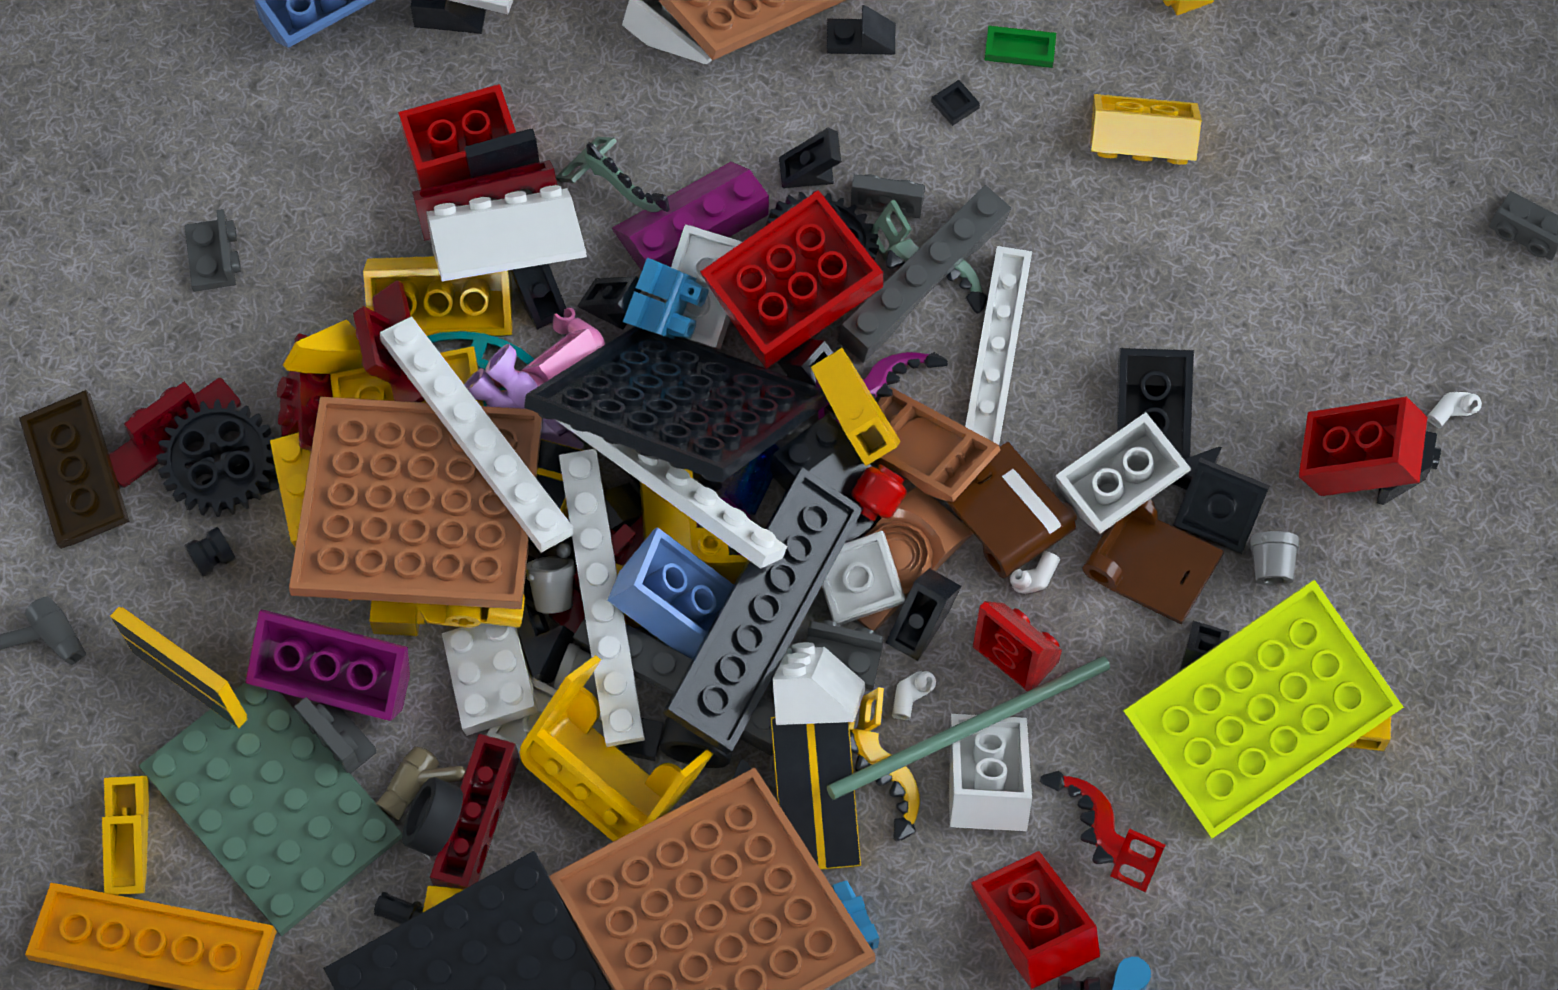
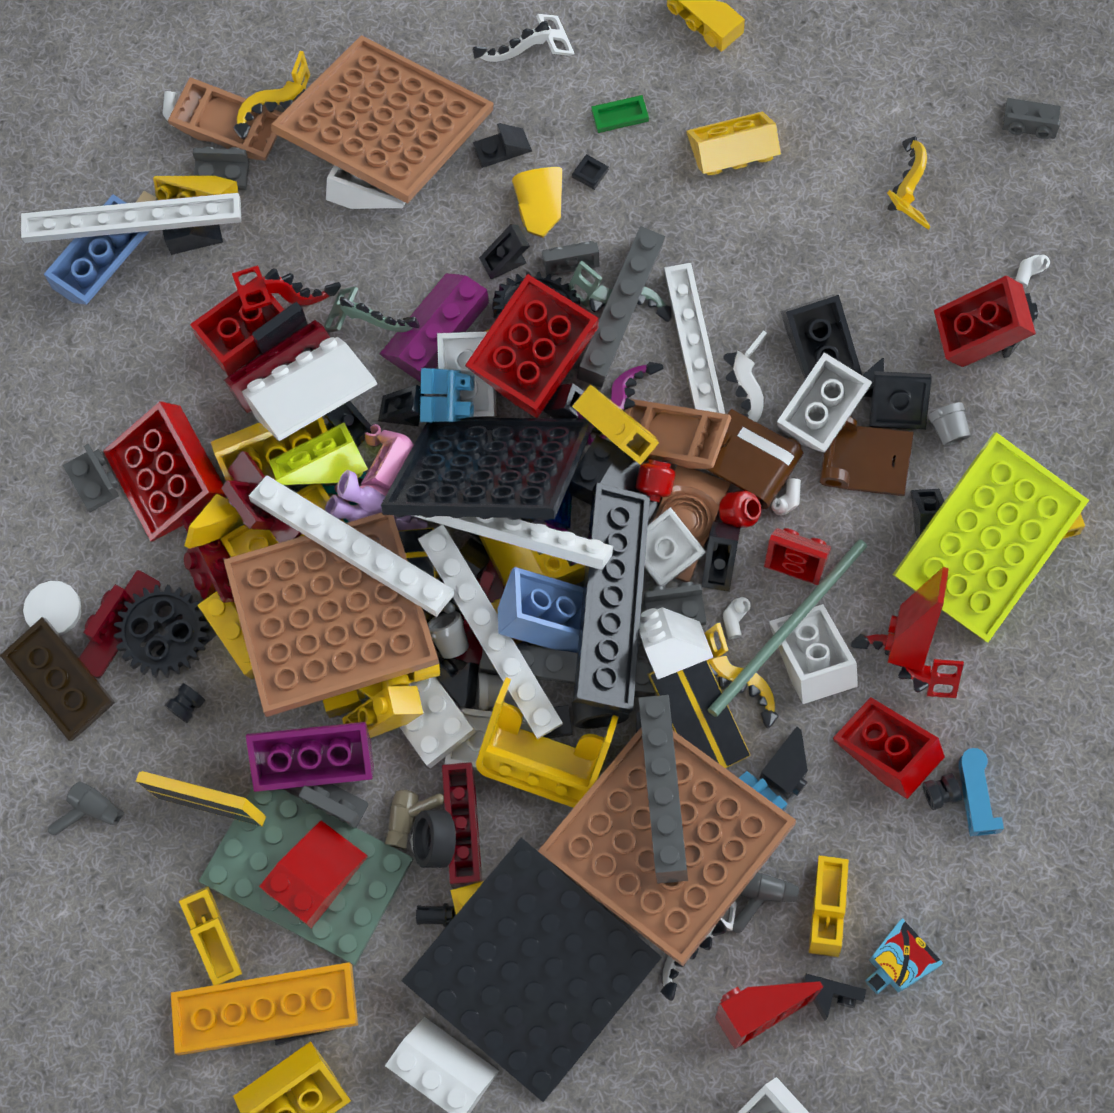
camera: 15 degrees left, 5 degrees up
(109, 381) = (54, 602): none -> white tile
(274, 805) = (313, 873): none -> red slope
(299, 270) = (163, 469): none -> red slope
(443, 645) = (388, 710): none -> yellow slope
(486, 323) = (319, 459): none -> neon yellow slope
(513, 98) = (273, 283): none -> red piece
(720, 872) = (663, 789): none -> dark grey arch
(879, 111) = (539, 198): none -> yellow panel
(899, 894) = (788, 766): none -> black slope
(969, 565) = (740, 509): none -> red head
(1039, 408) = (743, 376): none -> white piece
(1125, 781) = (916, 623): none -> red slope
(1333, 257) = (903, 192): none -> yellow piece

